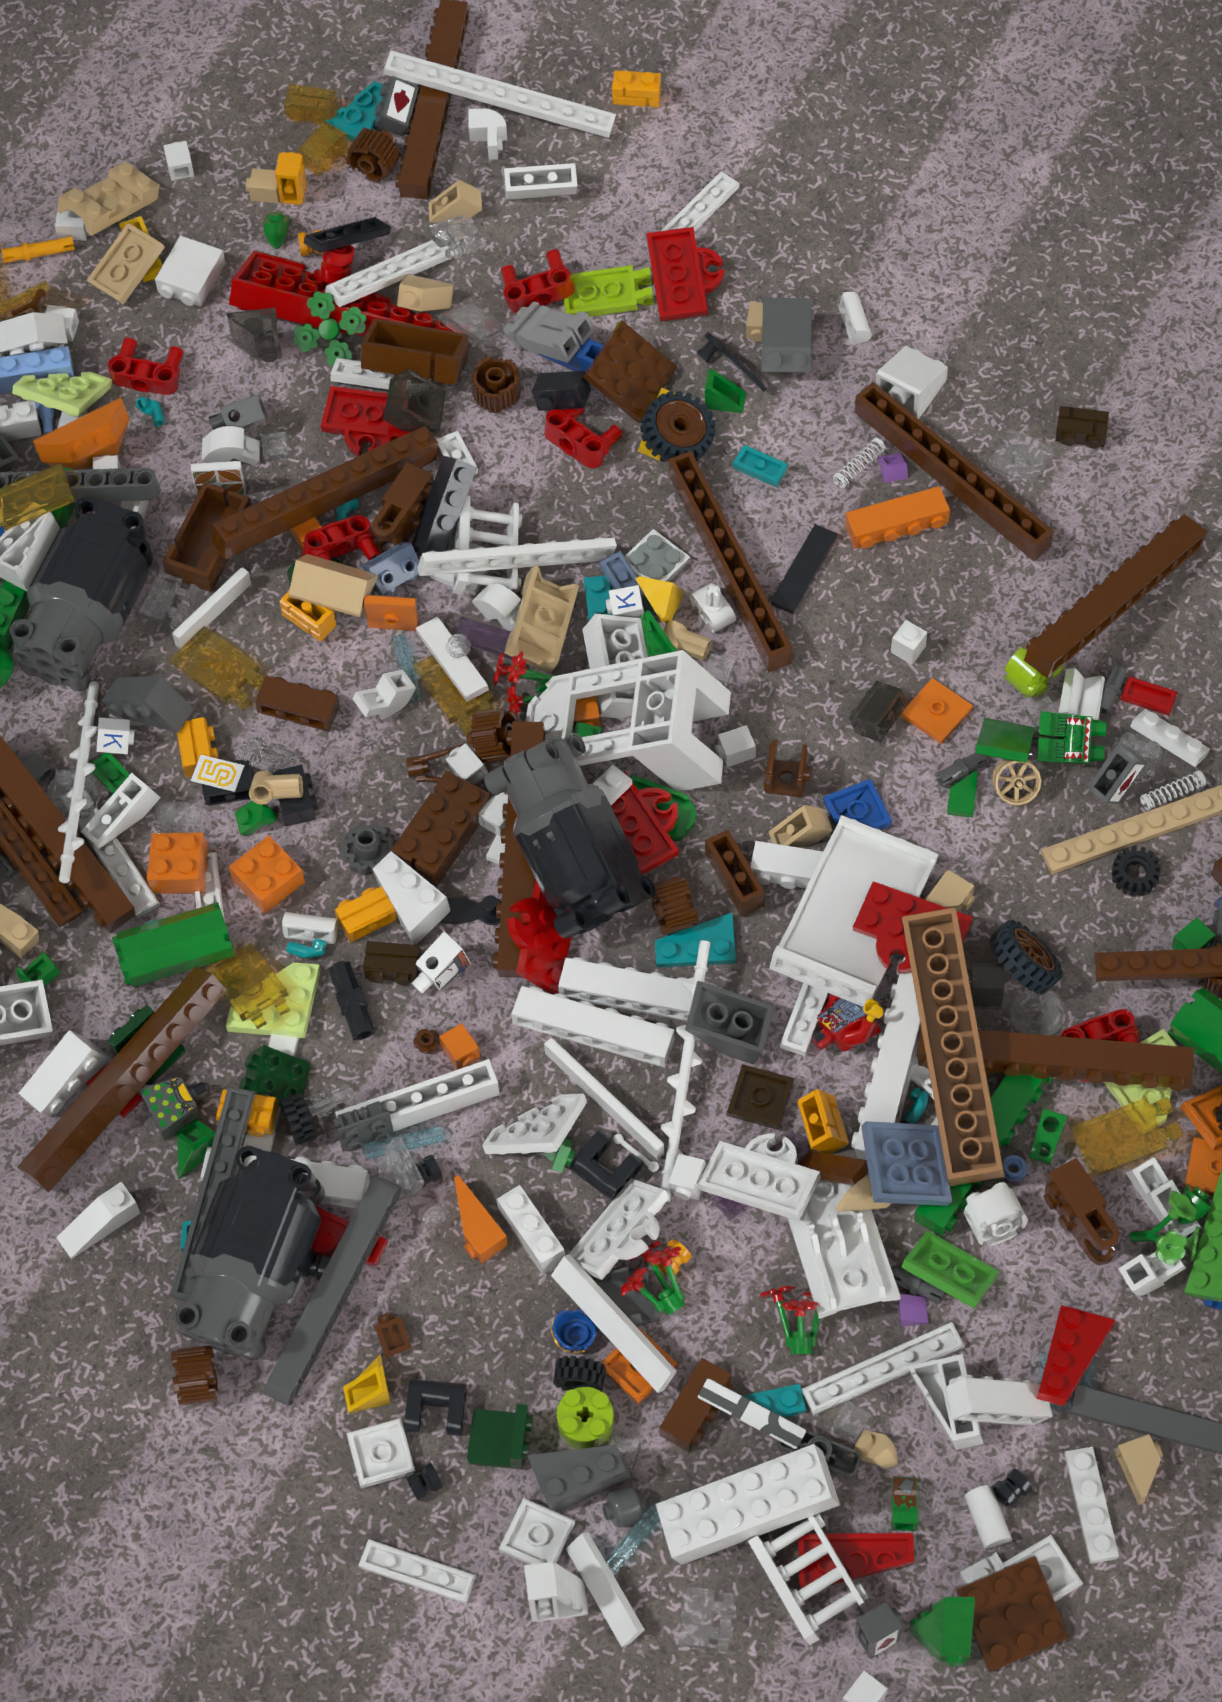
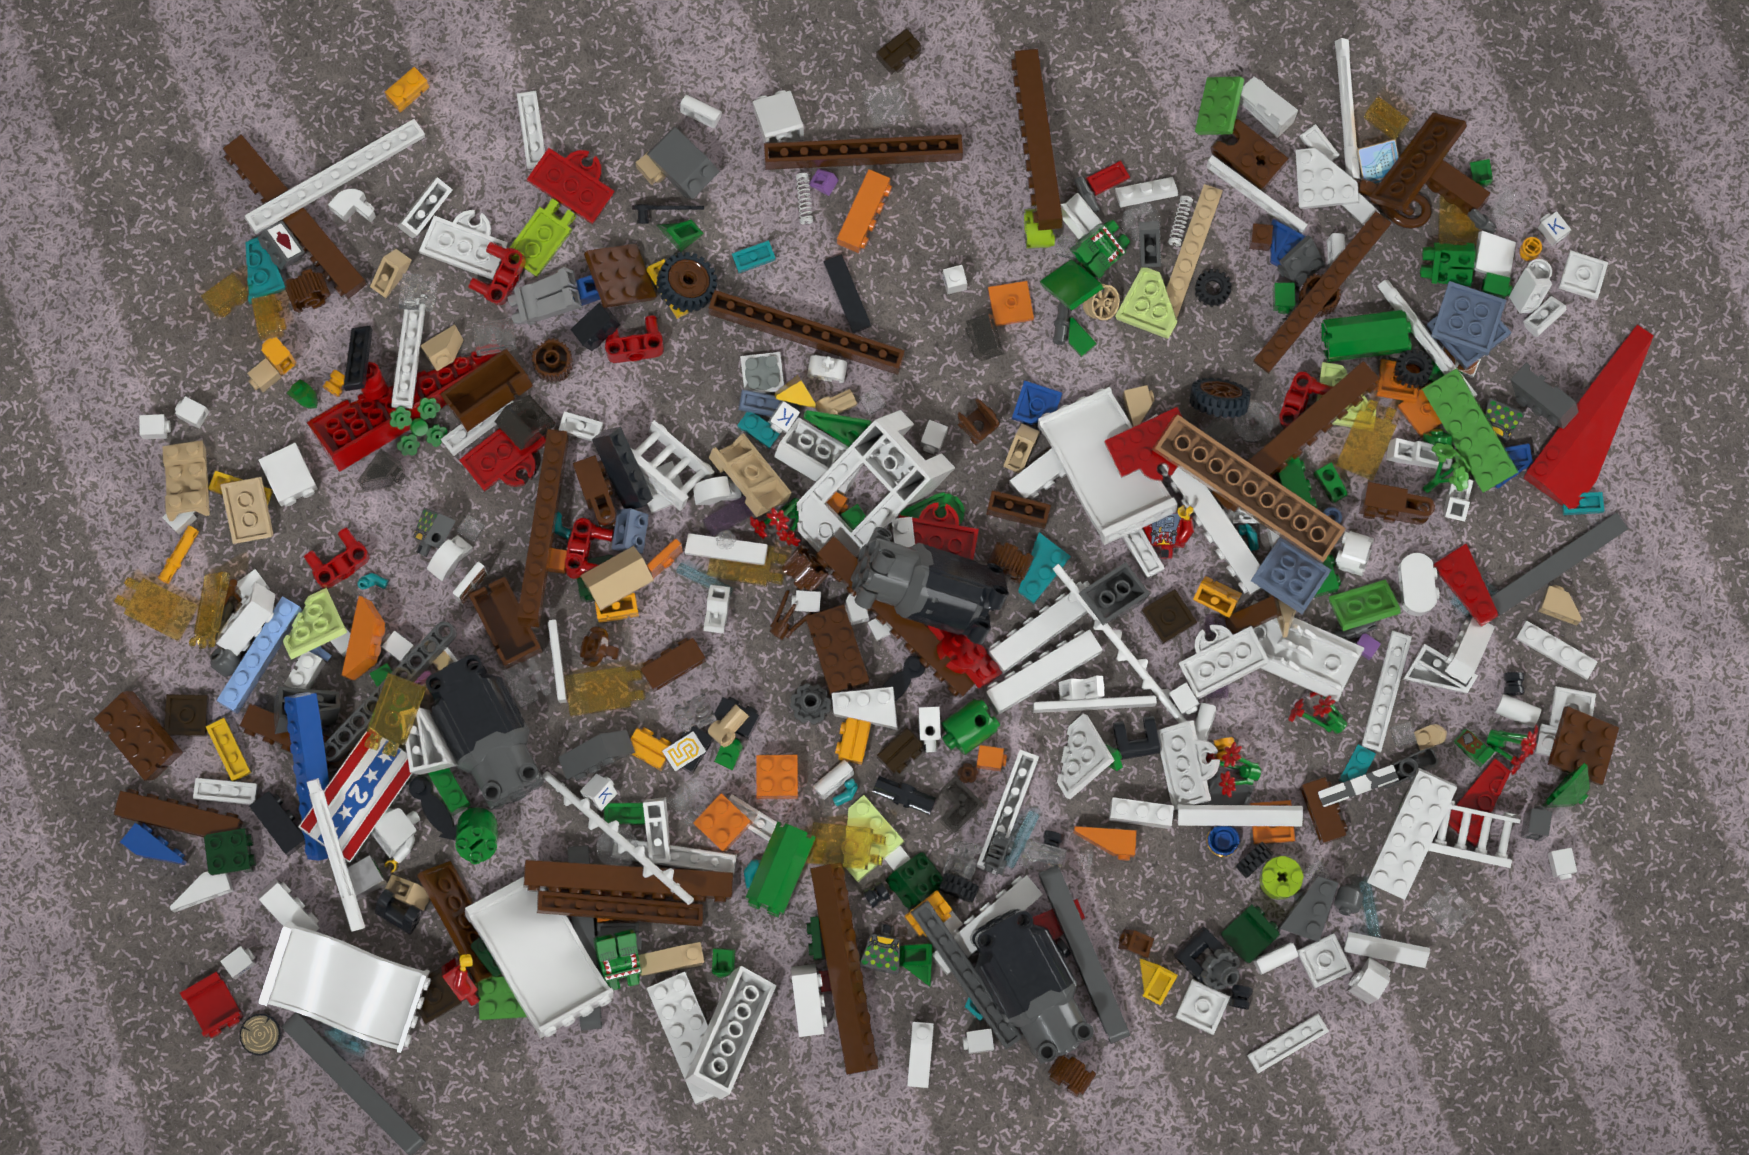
camera: 55 degrees left, 15 degrees up
(138, 143) = (154, 426): none -> white brick
(157, 1264) = (978, 1041): none -> white brick
(227, 1053) = (872, 897): none -> black wheel
(253, 626) = (597, 647): none -> reddish brown tile
(383, 1061) = (964, 805): none -> clear smoke brick
(434, 1434) = (1221, 969): none -> dark grey plant
(462, 998) = (963, 731): none -> green cylinder
(496, 1483) = (1275, 957): none -> white brick
(515, 556) = (699, 447): white plate -> none
(536, 231) = (462, 244): none -> white plate
(607, 1071) = (1081, 688): none -> white brick
(652, 1166) = (1157, 712): white hinge -> none
(681, 1217) = (1204, 720): none -> white brick
(953, 1540) = (1499, 739): none -> plant
(1024, 1305) = (1417, 584): none -> white brick
(1058, 825) = (1148, 305): none -> yellowish green plate

